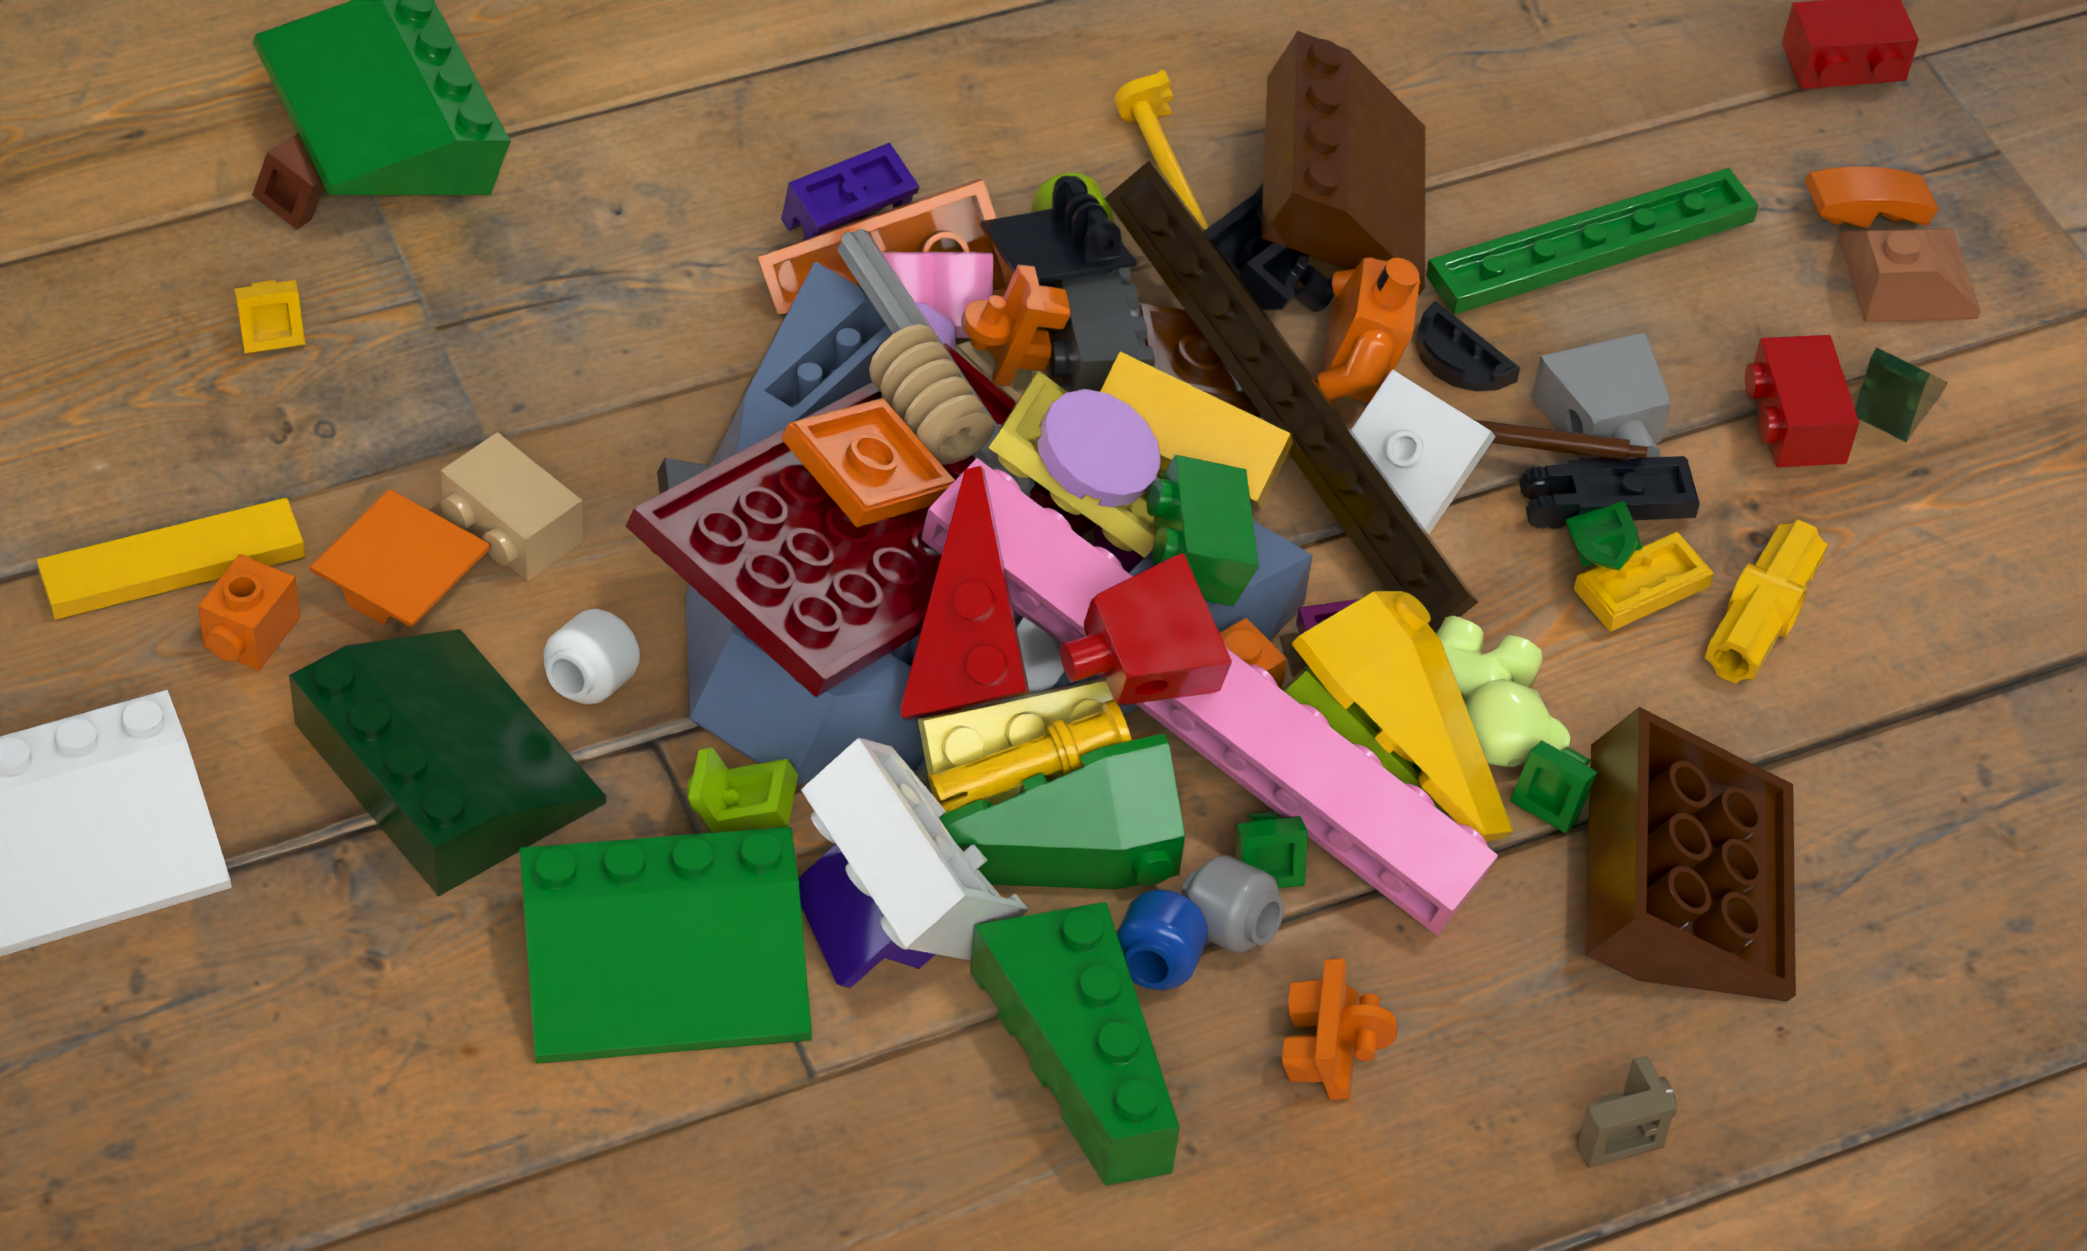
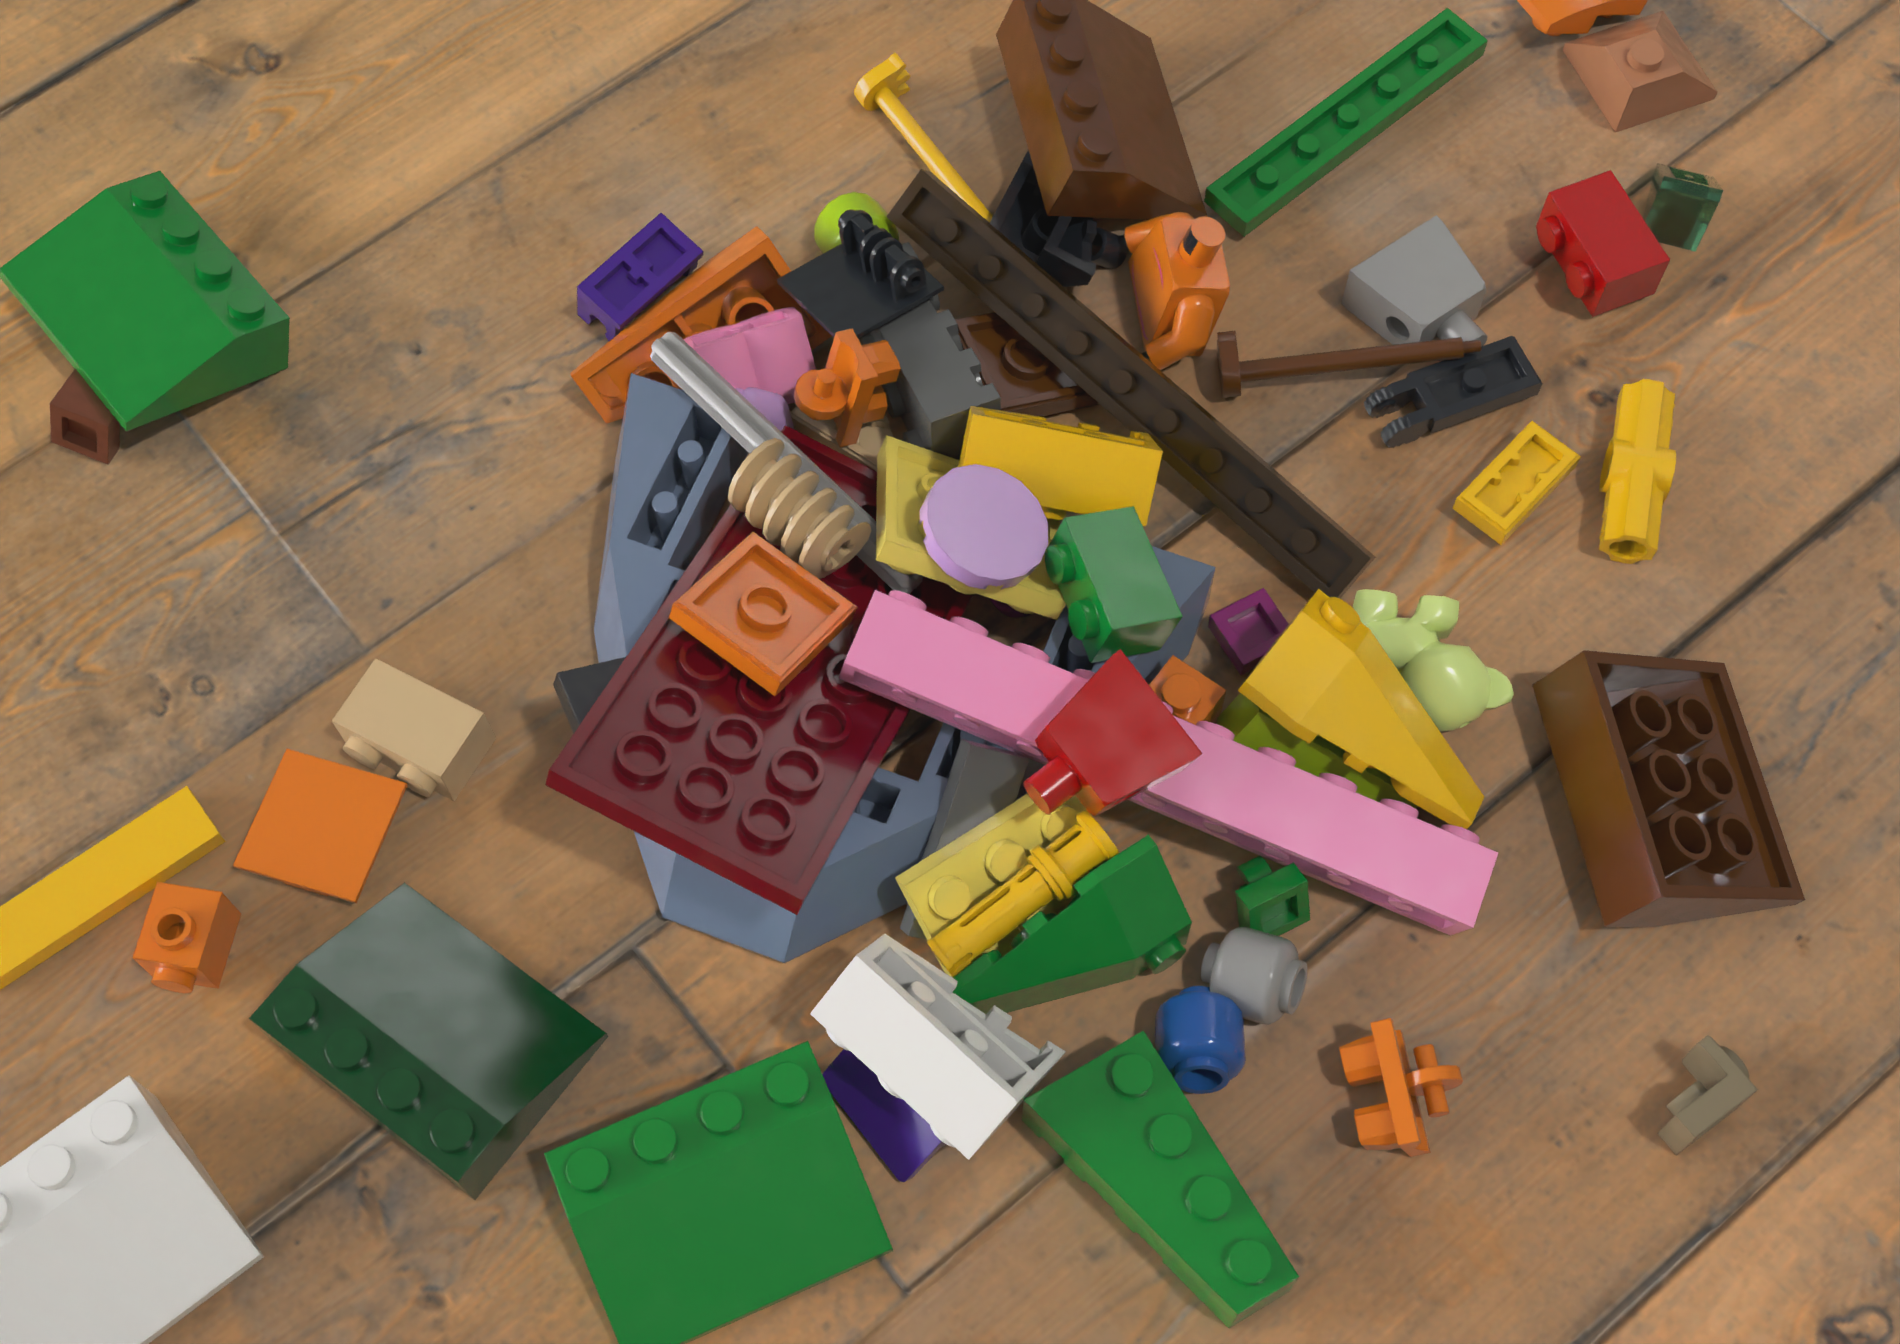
camera: 10 degrees left, 15 degrees up
(269, 315) = (107, 579): yellow tile -> none
(591, 656) = (544, 883): white head -> none
(741, 796) = (741, 998): lime bracket -> none
(969, 631) = (922, 778): red wing -> none
(1421, 445) = (1268, 401): white plate -> none
(1460, 354) = (1265, 279): black tile -> none
(1554, 785) = (1513, 739): green tile -> none
(1604, 536) = (1471, 450): green plate -> none

